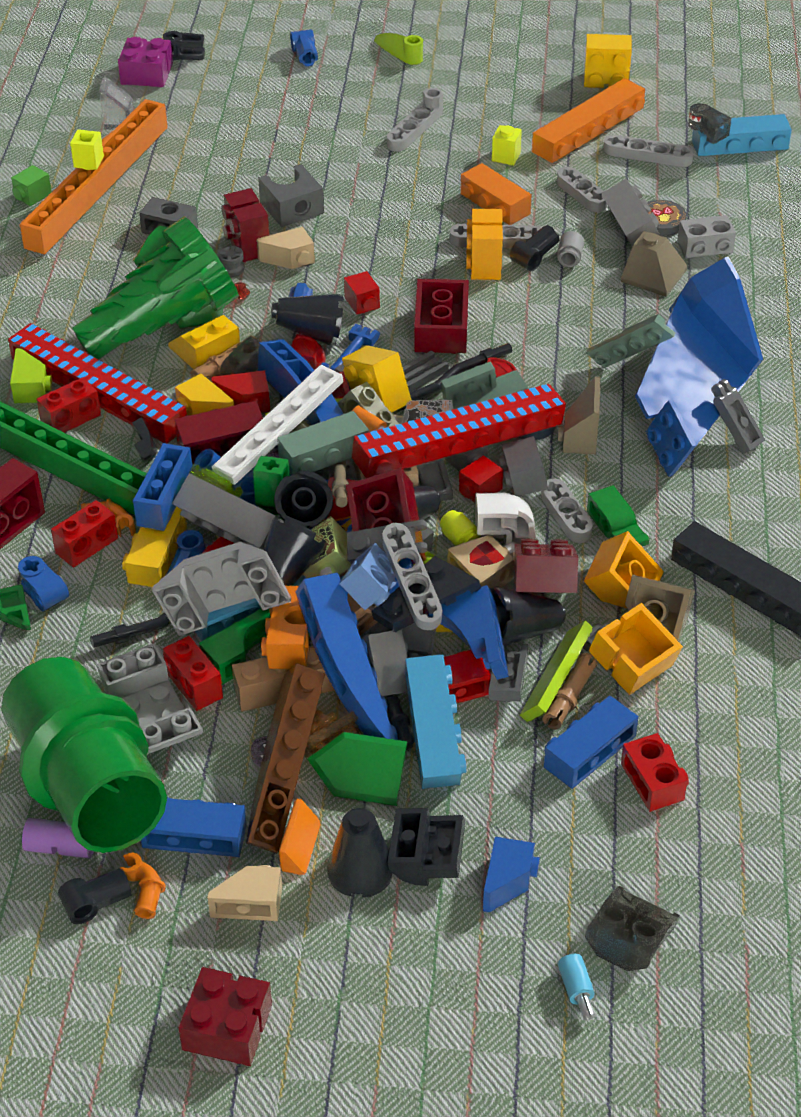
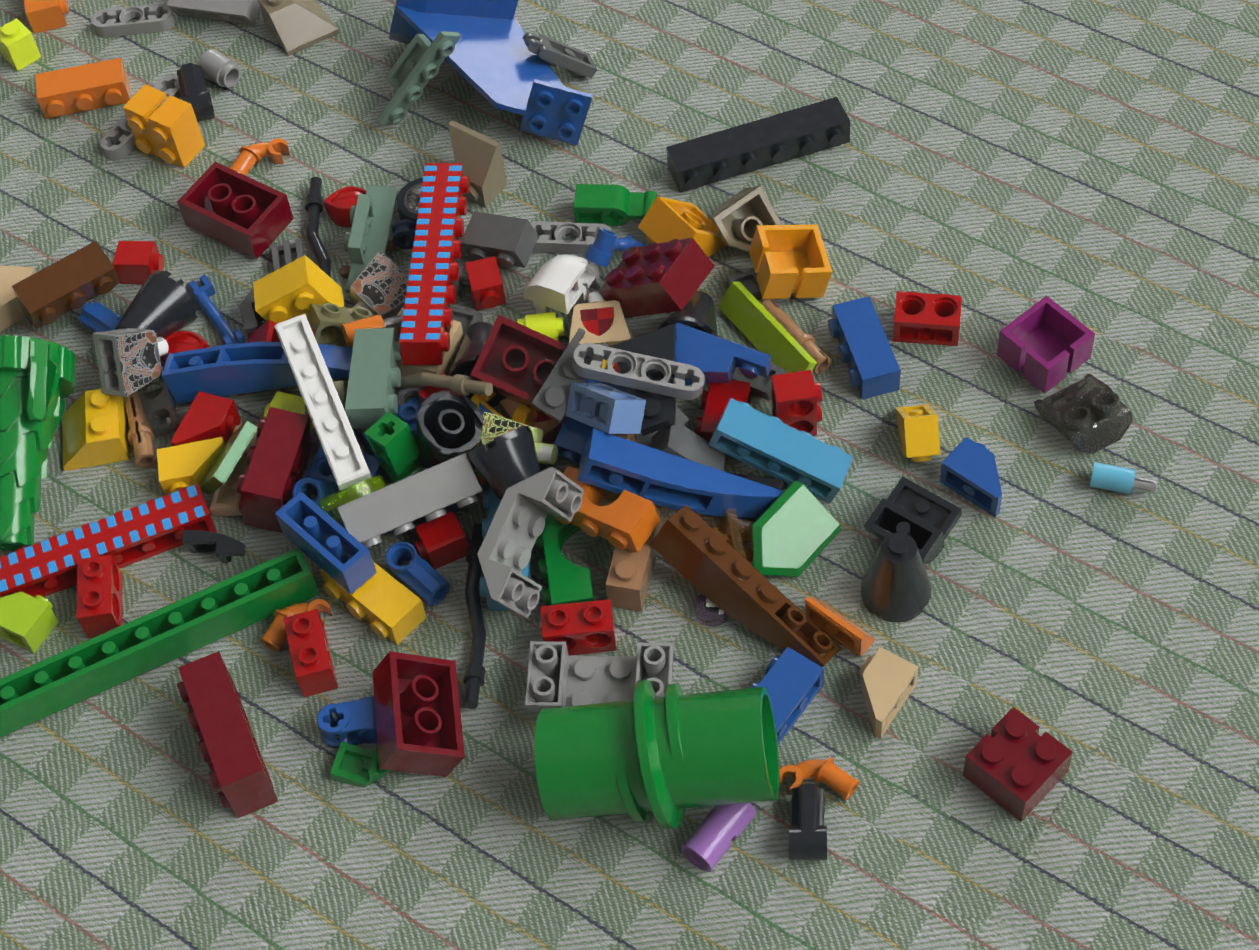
camera: 55 degrees left, 10 degrees up
(57, 608) = (417, 714): none -> dark red brick
(203, 404) = (228, 458): none -> tile
(255, 315) = (128, 359): none -> light grey torso
(305, 262) = (65, 285): none -> reddish brown slope
(486, 712) = (797, 400): none -> red brick
(505, 303) = (253, 153): none -> orange piece
(526, 812) = (918, 432): none -> yellow slope
(552, 520) = (605, 243): none -> blue brick
(681, 864) = (1045, 344): none -> magenta piece

